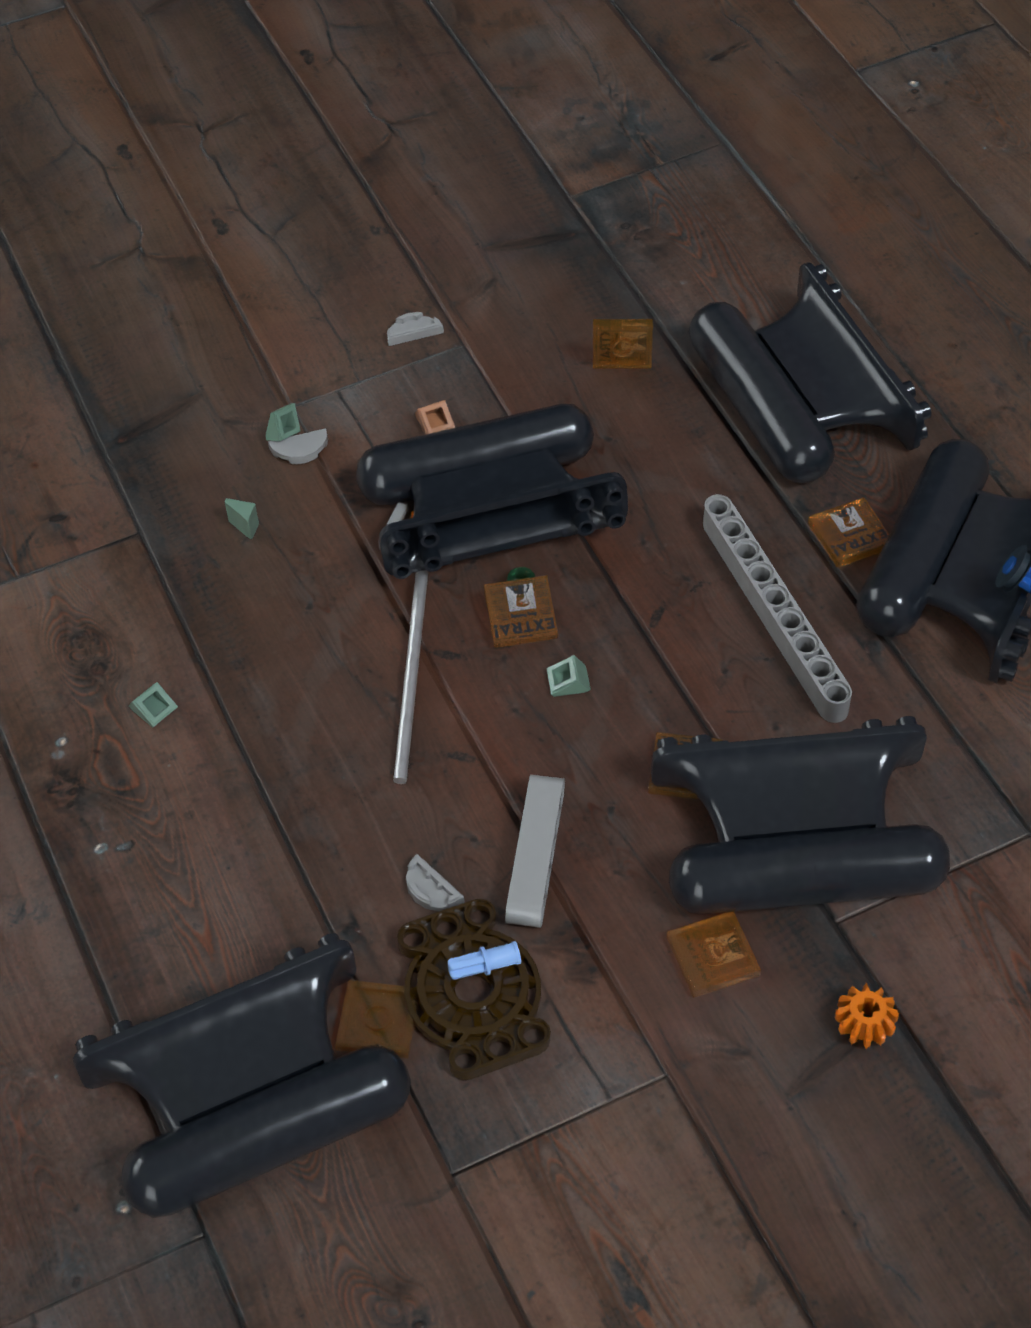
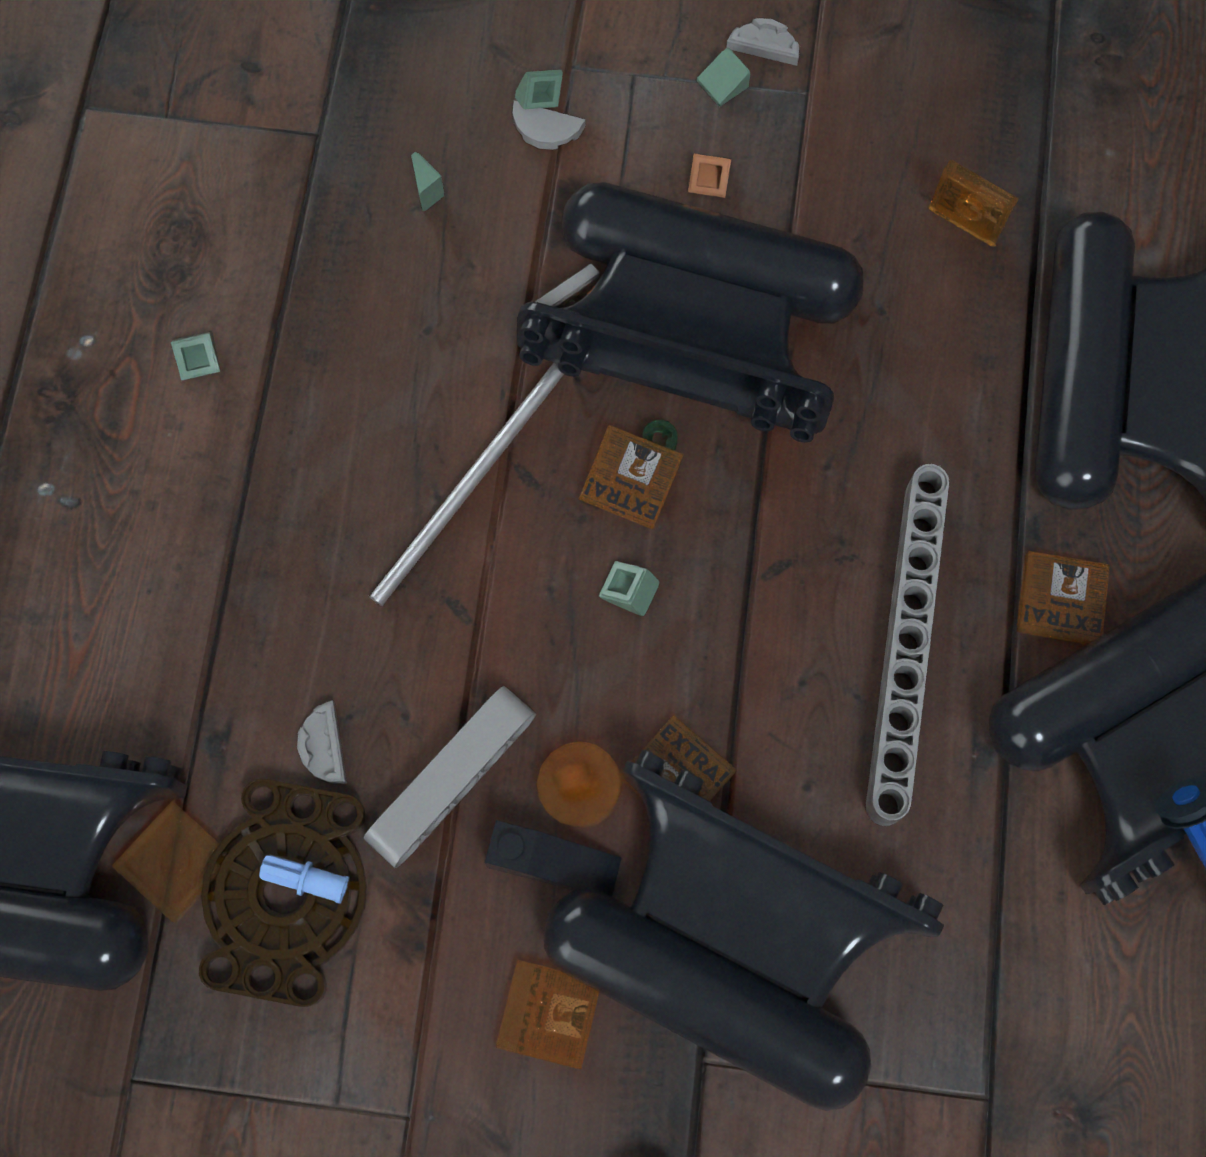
camera: 30 degrees right, 20 degrees up
(402, 359) = (724, 77): none -> sand green slope
(626, 806) = (579, 784): none -> clear orange tile
(634, 859) = (550, 859): none -> black slope

